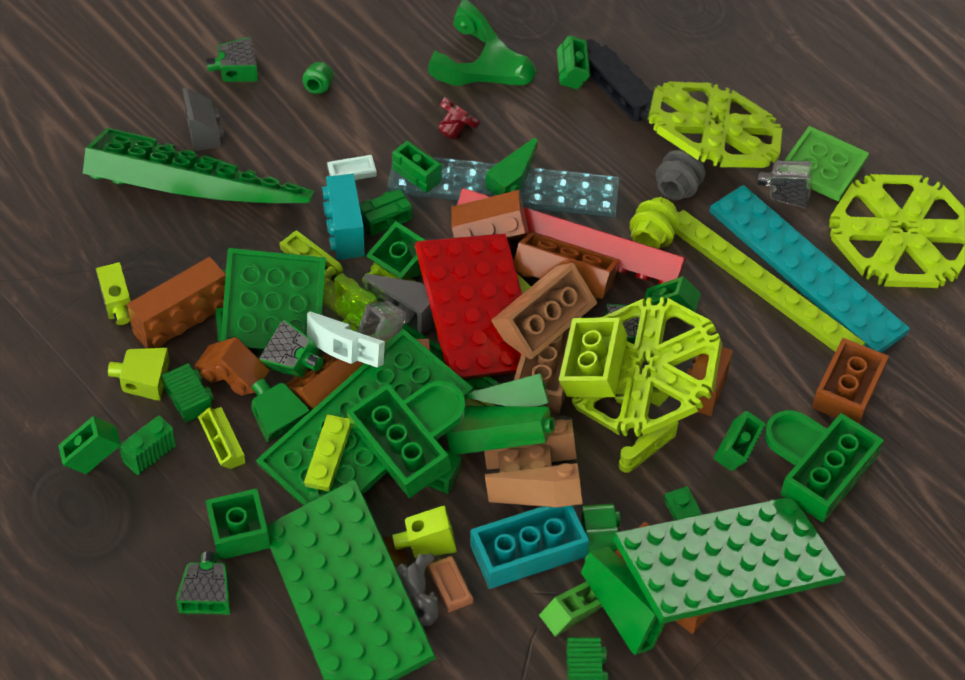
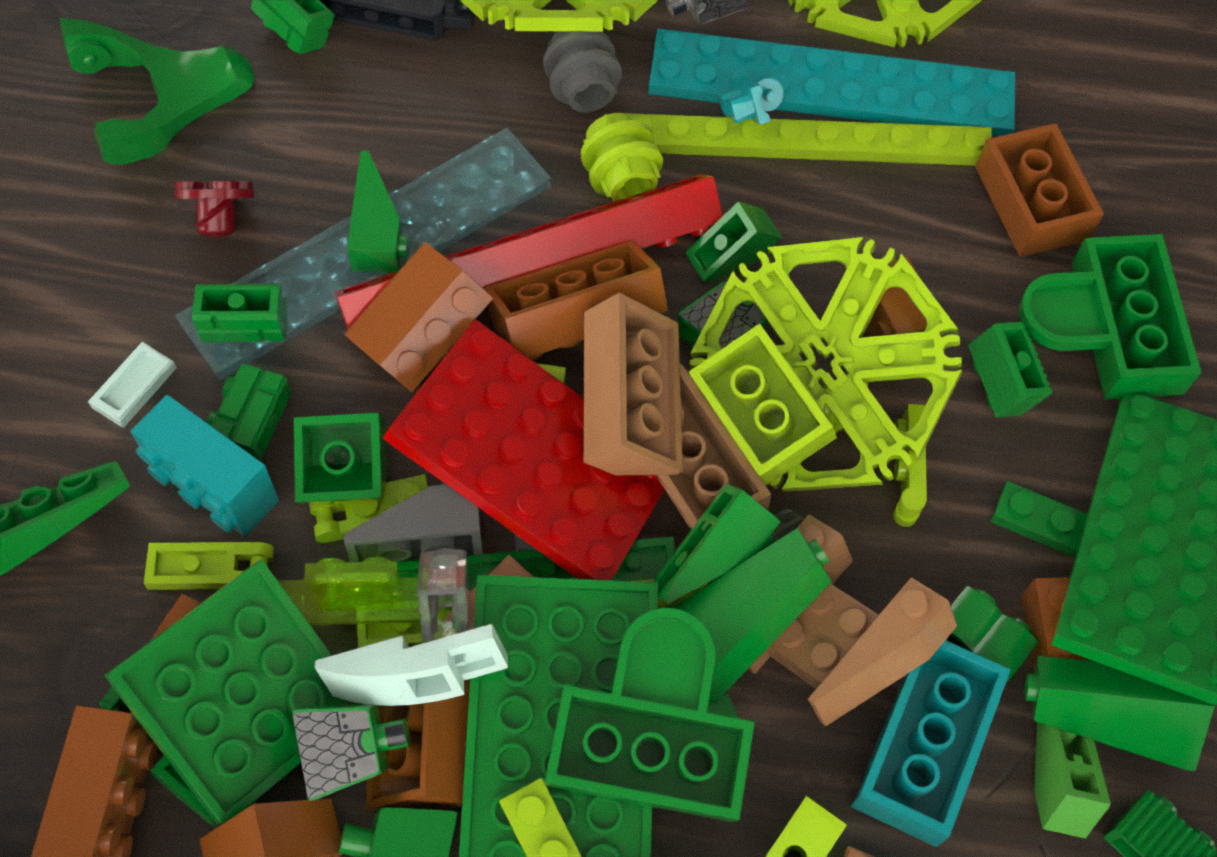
camera: 45 degrees left, 10 degrees up
(747, 242) = (751, 99): none -> teal hips

